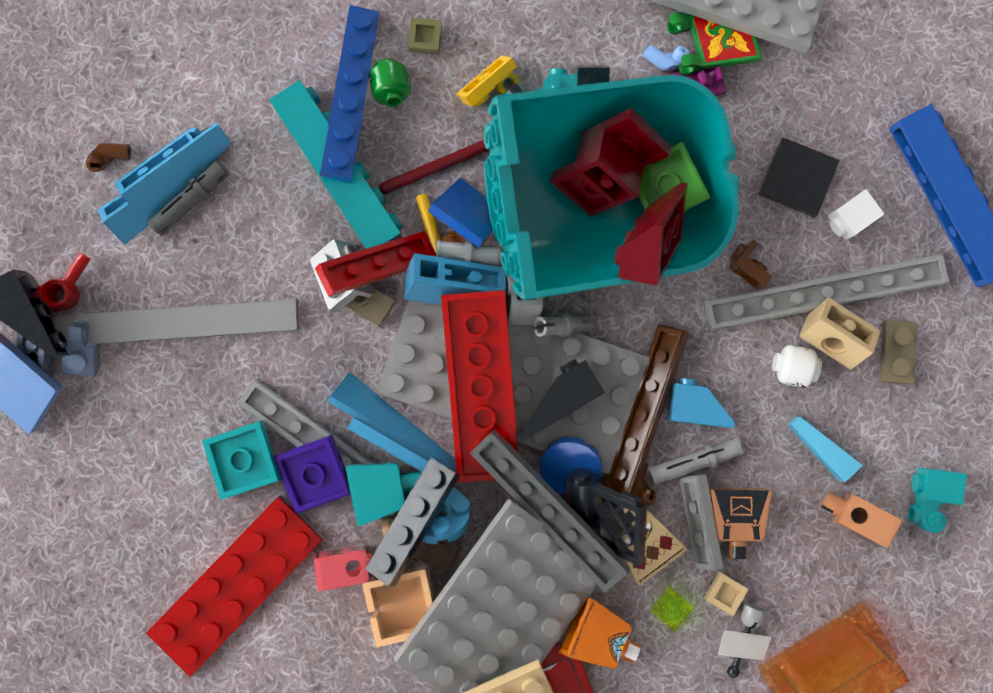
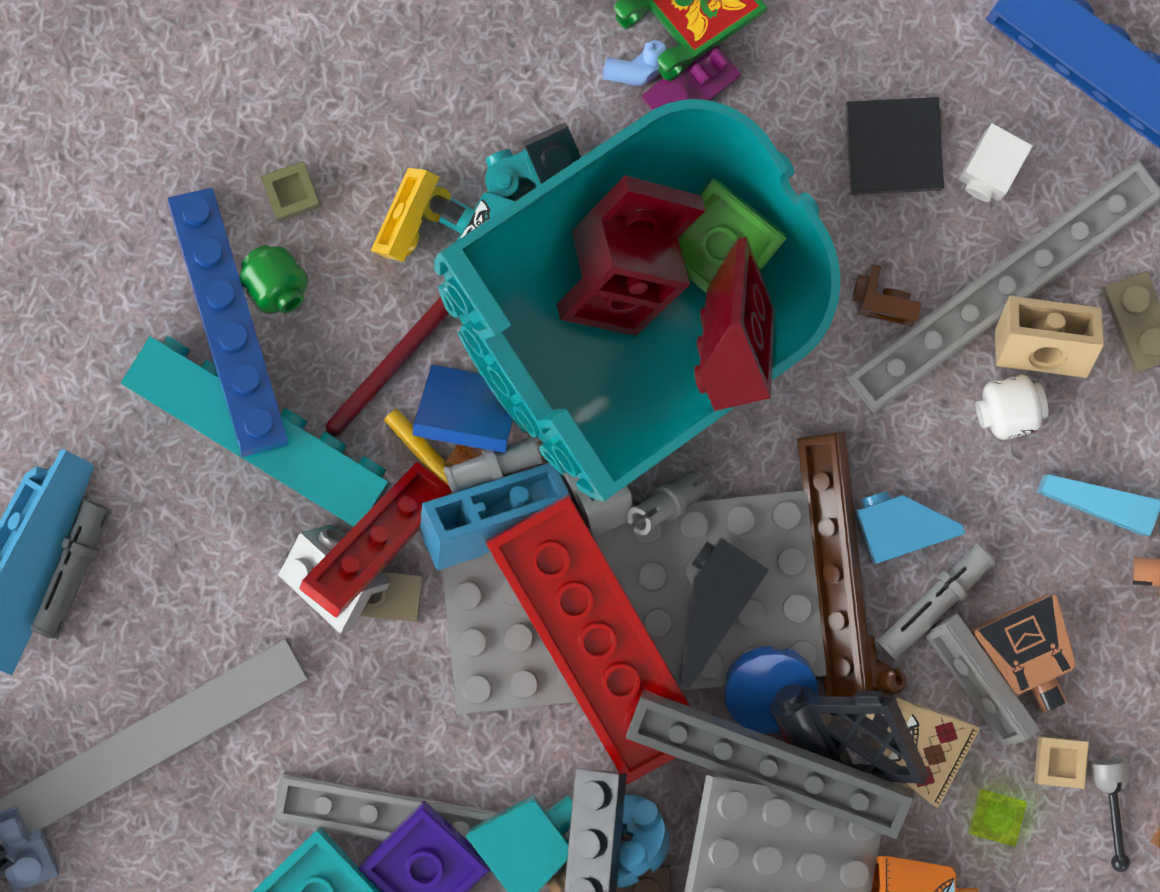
camera: 20 degrees left, 0 degrees up
(385, 426) = (493, 754): dark azure wedge -> none
(744, 645) = (1117, 820): white sticker -> none

